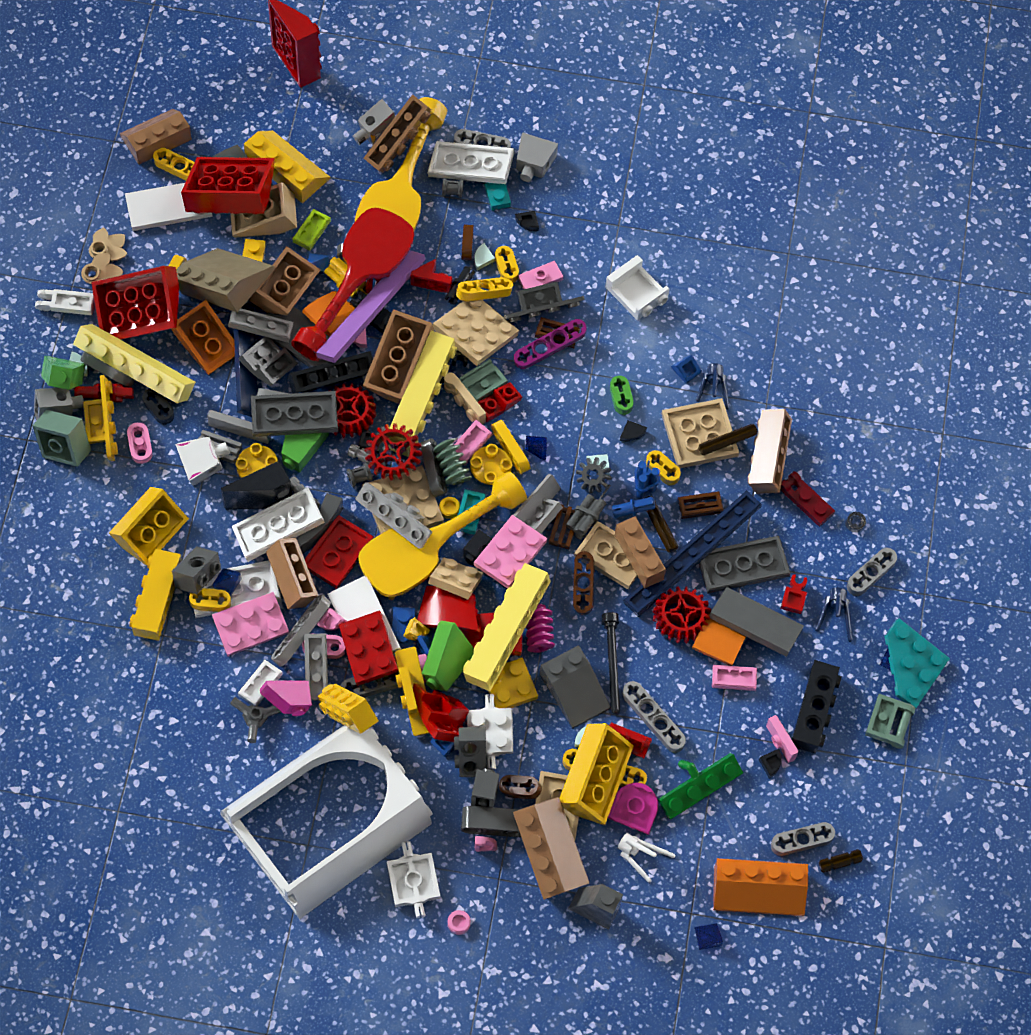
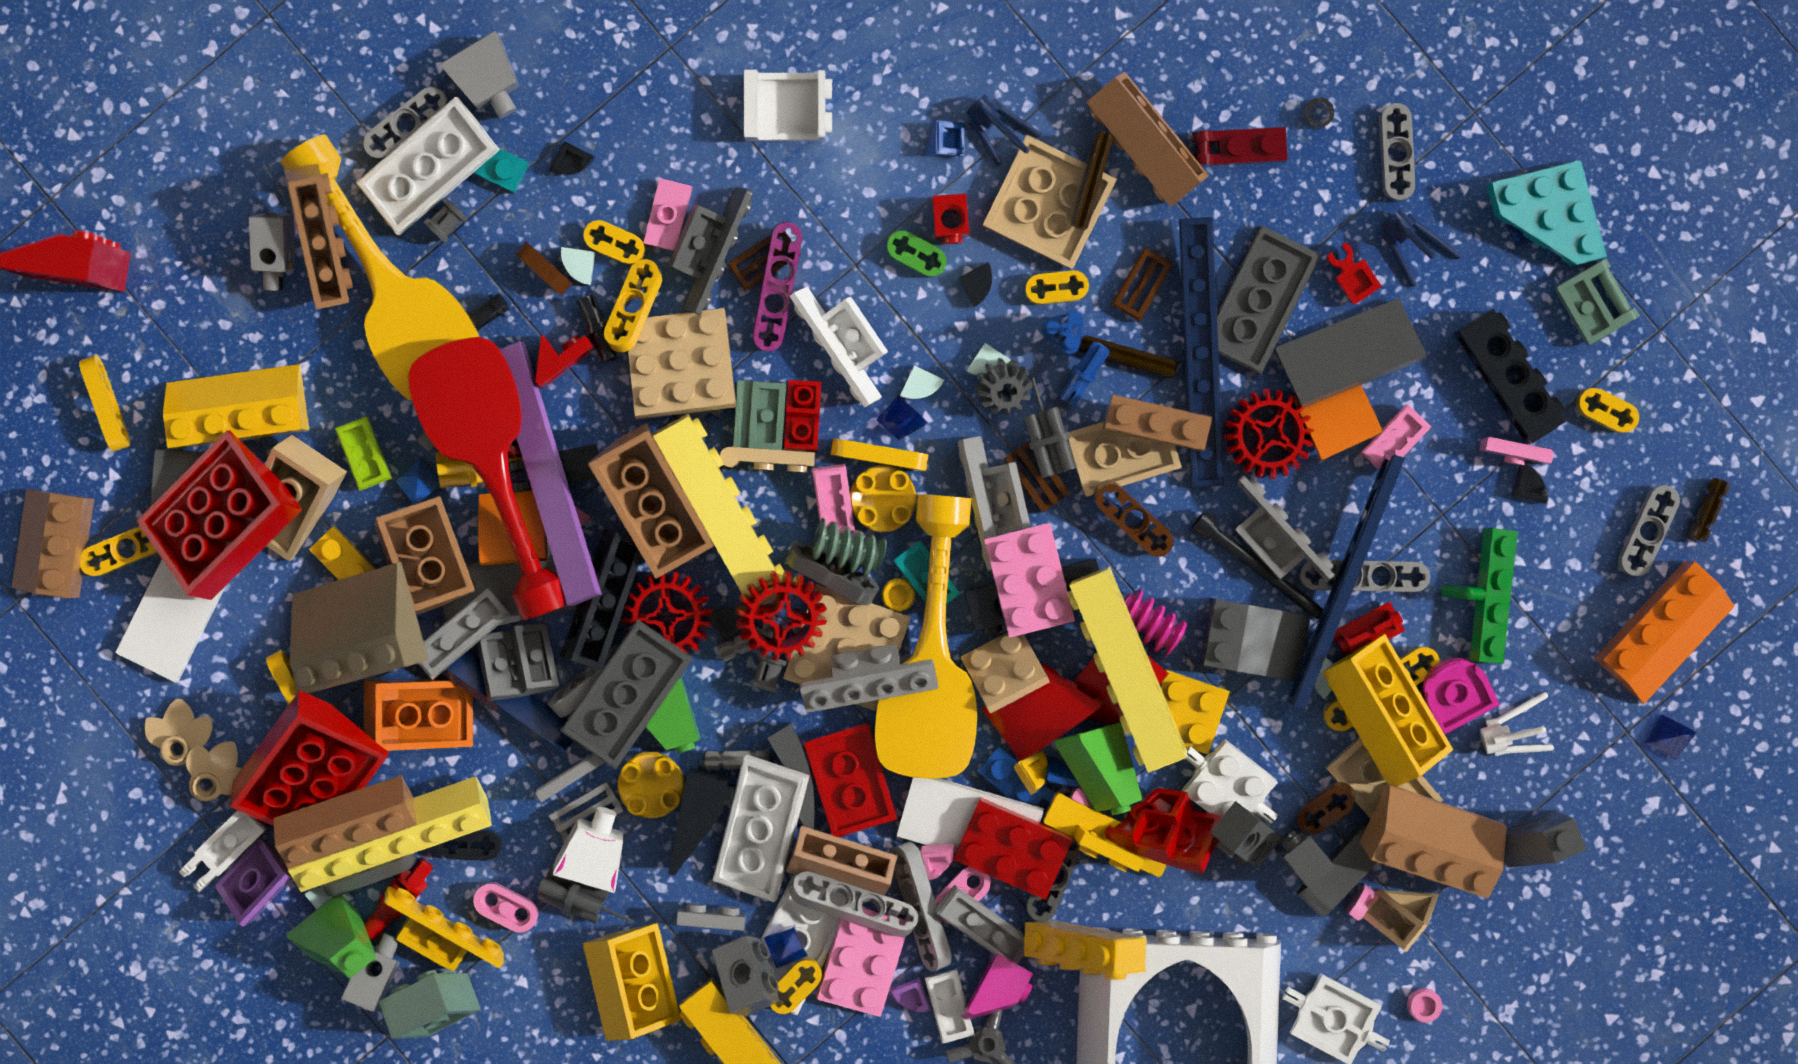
camera: 45 degrees left, 25 degrees up
(58, 327) = (253, 881): none -> medium lavender slope
(125, 335) = (344, 821): none -> medium nougat brick
(171, 469) = (575, 897): none -> dark grey piece
(209, 531) = (697, 916): none -> light grey plate
(241, 111) = (104, 403): none -> yellow beam
(250, 663) = (911, 996): none -> medium lavender tile
(272, 593) = (853, 909): none -> light grey beam
(426, 234) = (488, 311): none -> black pin
(496, 871) = (1401, 914): none -> tan slope
(551, 393) = (846, 339): none -> white bracket
(561, 442) = (920, 384): none -> light aqua tile
(632, 654) = (1275, 539): none -> light grey bracket
(643, 701) = (1345, 580): none -> dark blue tile
(656, 388) = (955, 203): none -> red brick
(838, 772) = (1610, 403): none -> yellow beam

